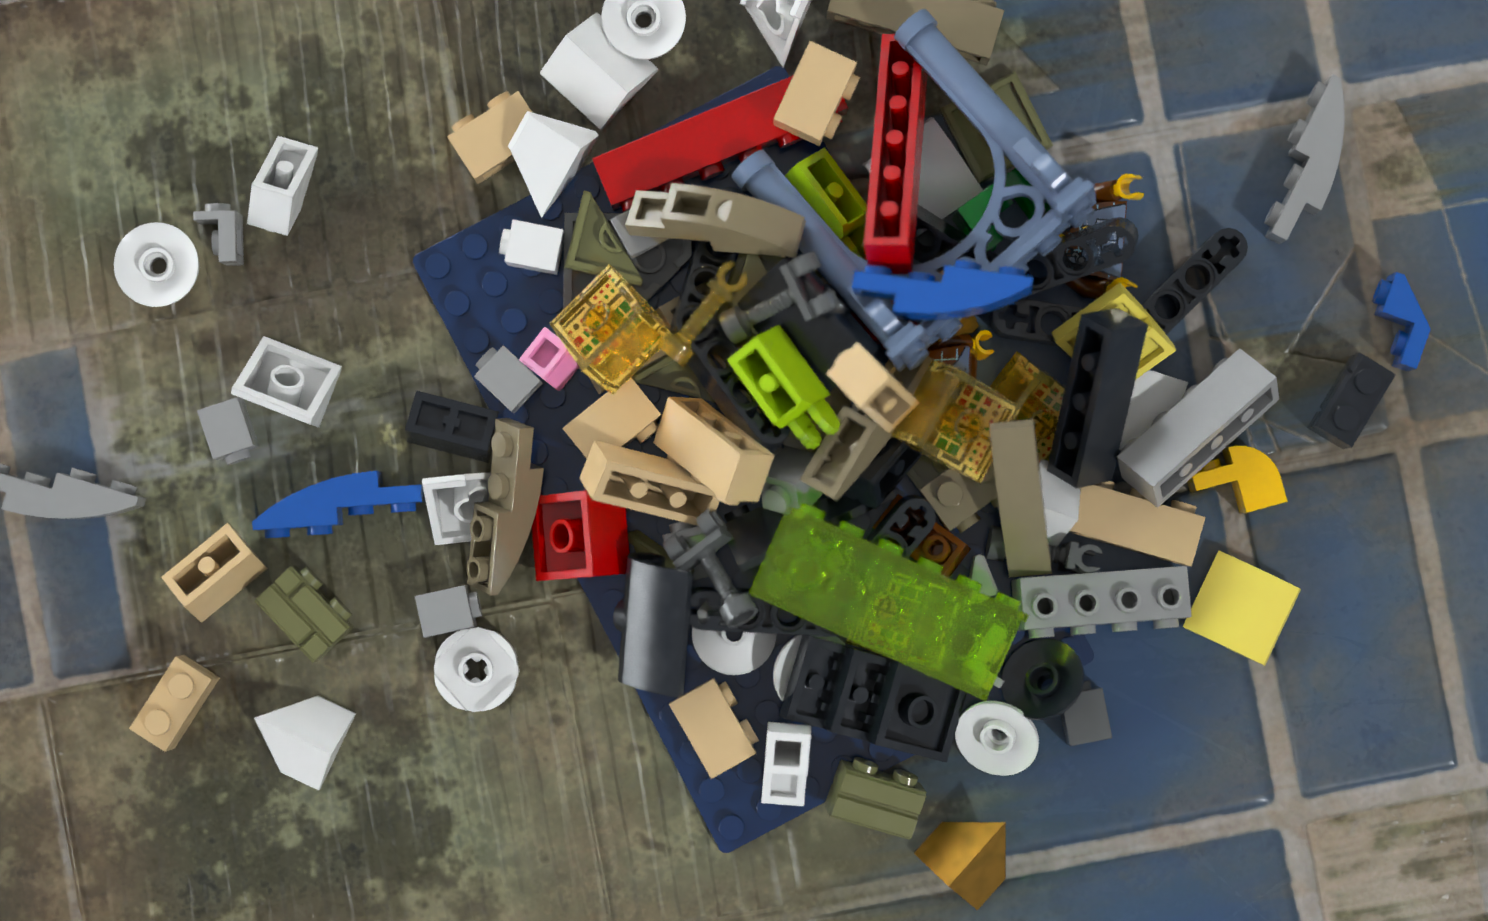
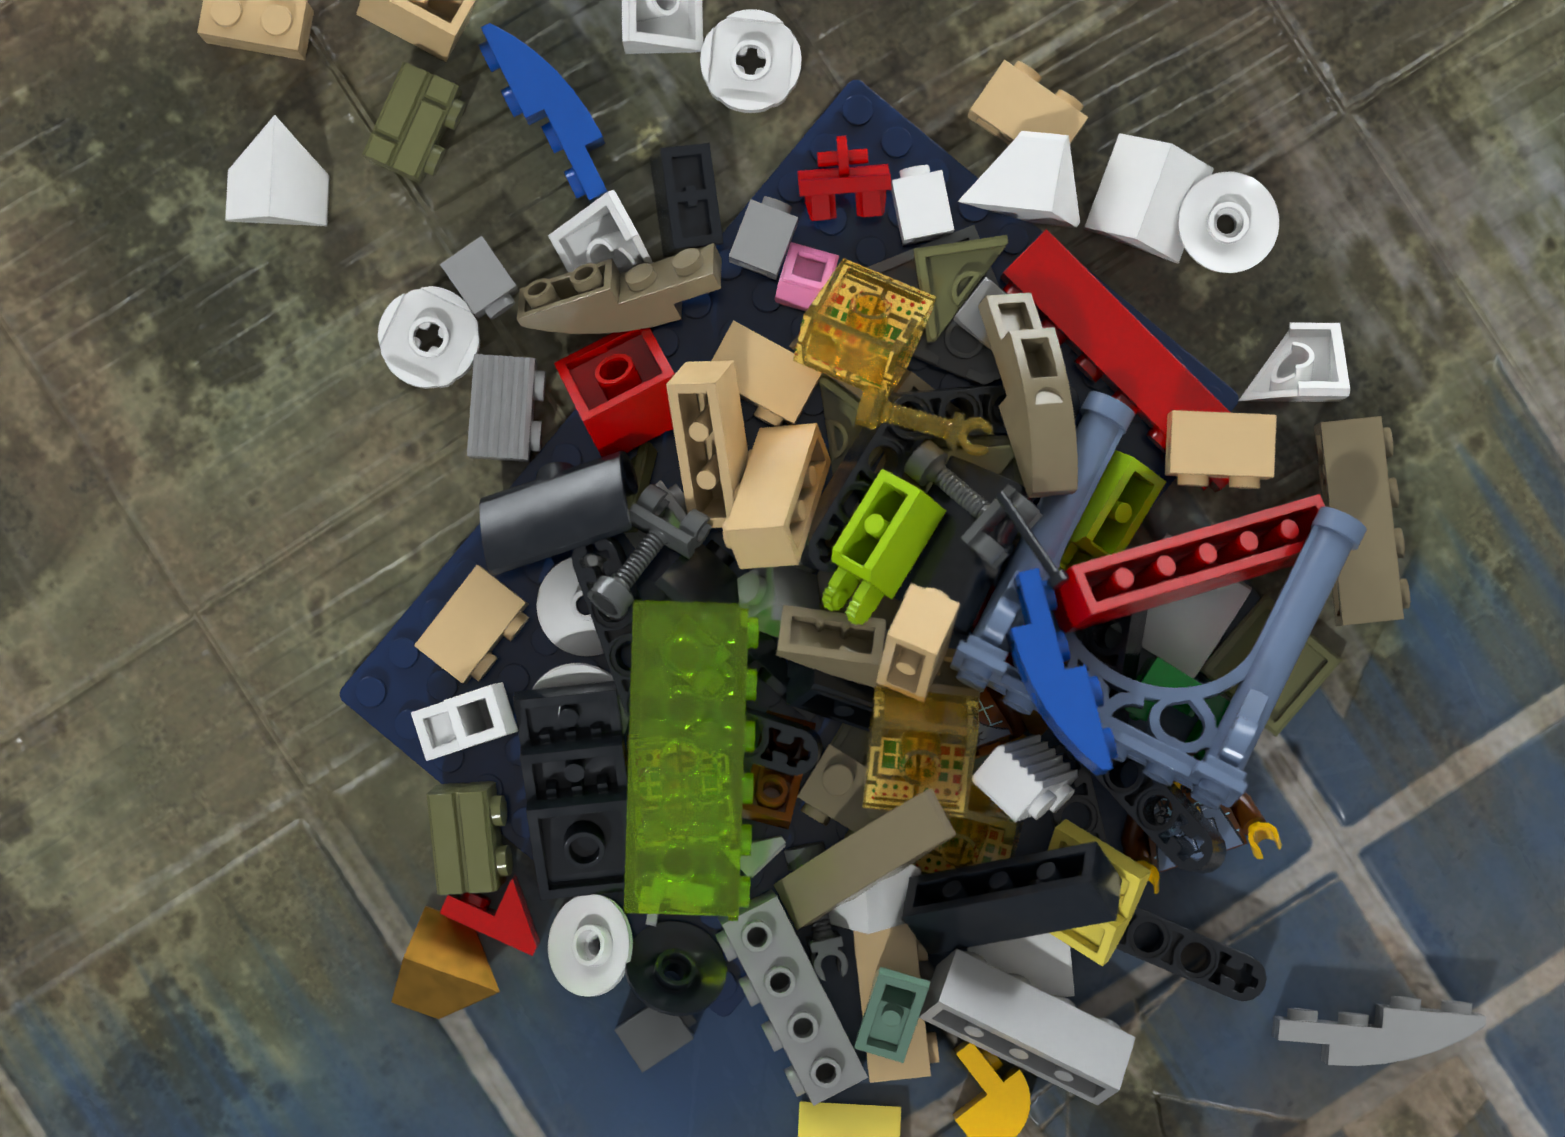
camera: 65 degrees right, 0 degrees up
(342, 340) = (730, 40): none -> white plate
(496, 282) = (866, 182): none -> red hips
(555, 634) = (504, 408): none -> light grey brick
(868, 260) = (1056, 578): none -> black piece
(955, 795) = (509, 924): none -> red slope
(1009, 348) = (1026, 778): none -> white brick
(1147, 527) = (891, 1014): none -> sand green slope

